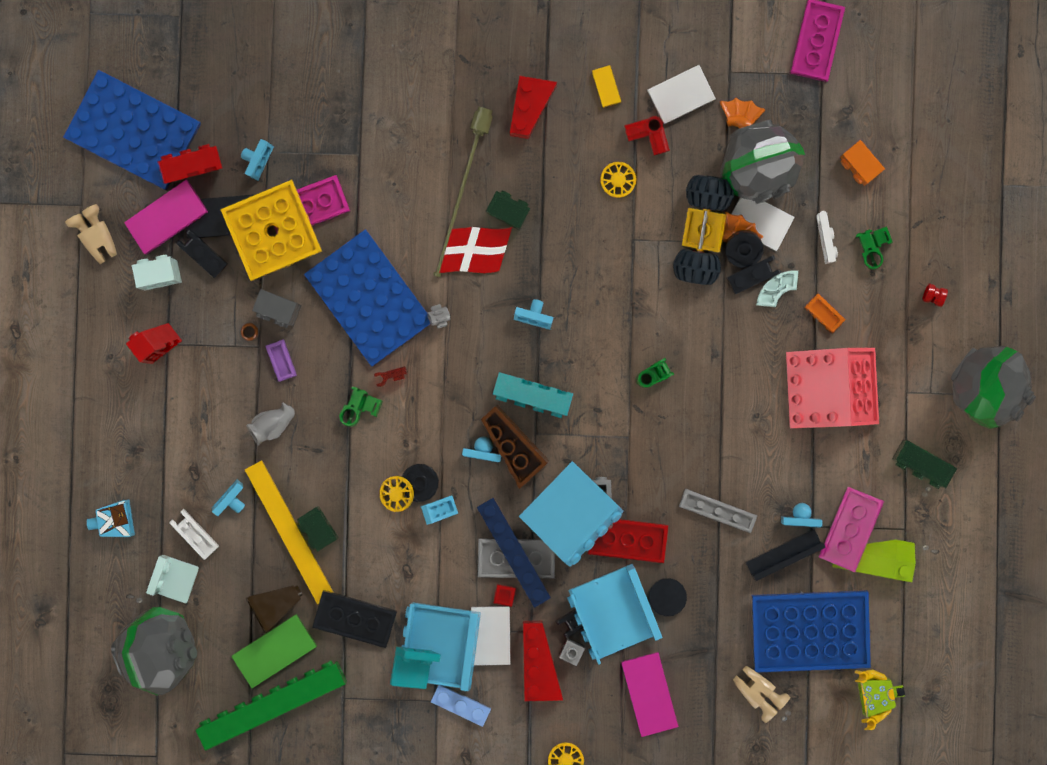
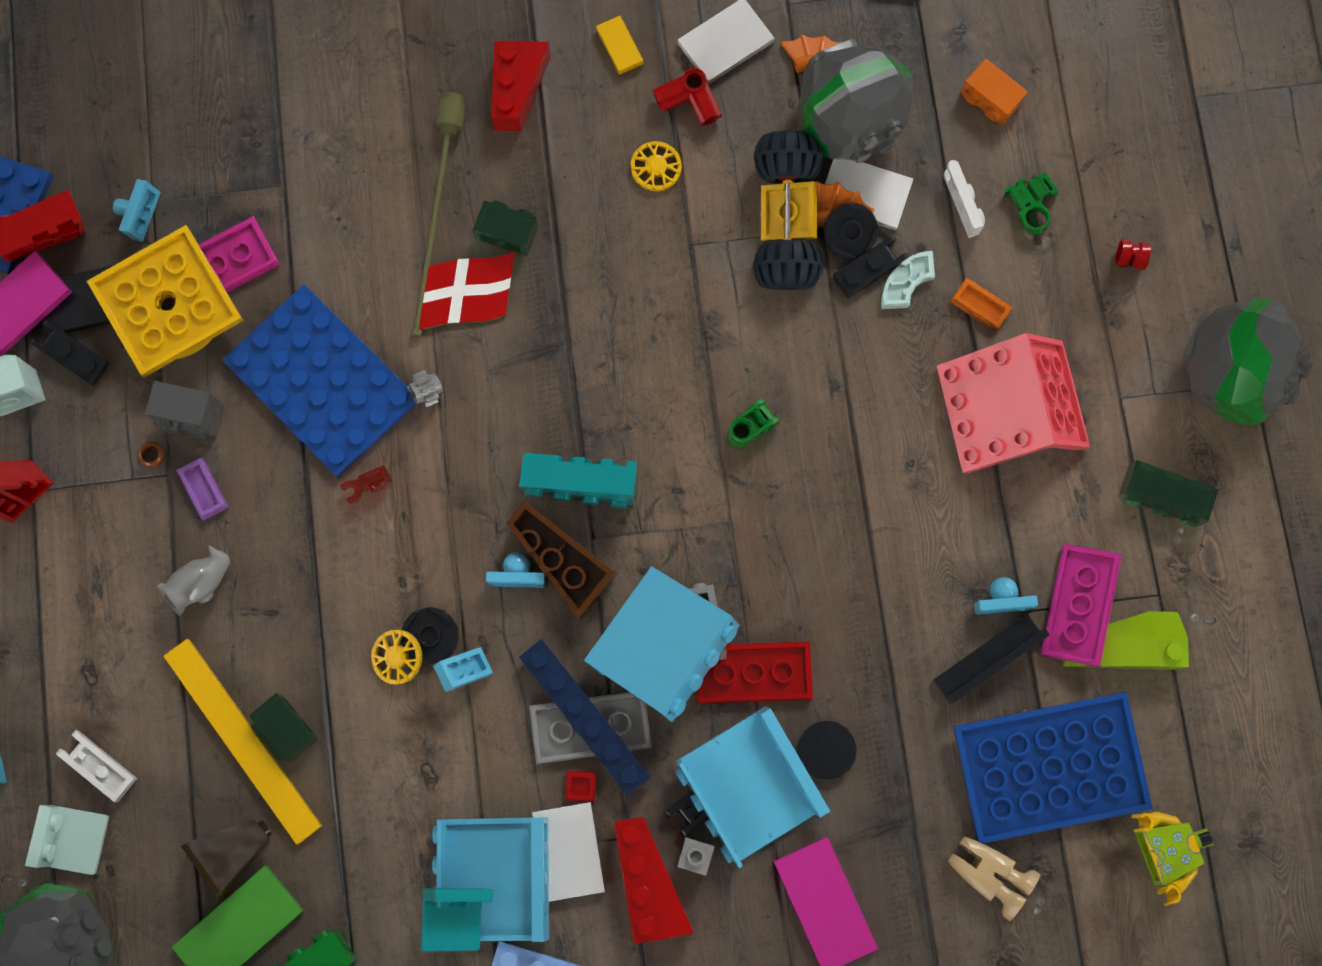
camera: 10 degrees left, 10 degrees down
(229, 499) = (145, 704): medium azure tile -> none
(354, 619) = (355, 858): black tile -> none
(361, 402) = (326, 531): green piece -> none
(534, 315) = (563, 368): medium azure tile -> none
(718, 510) = (879, 609): light grey tile -> none

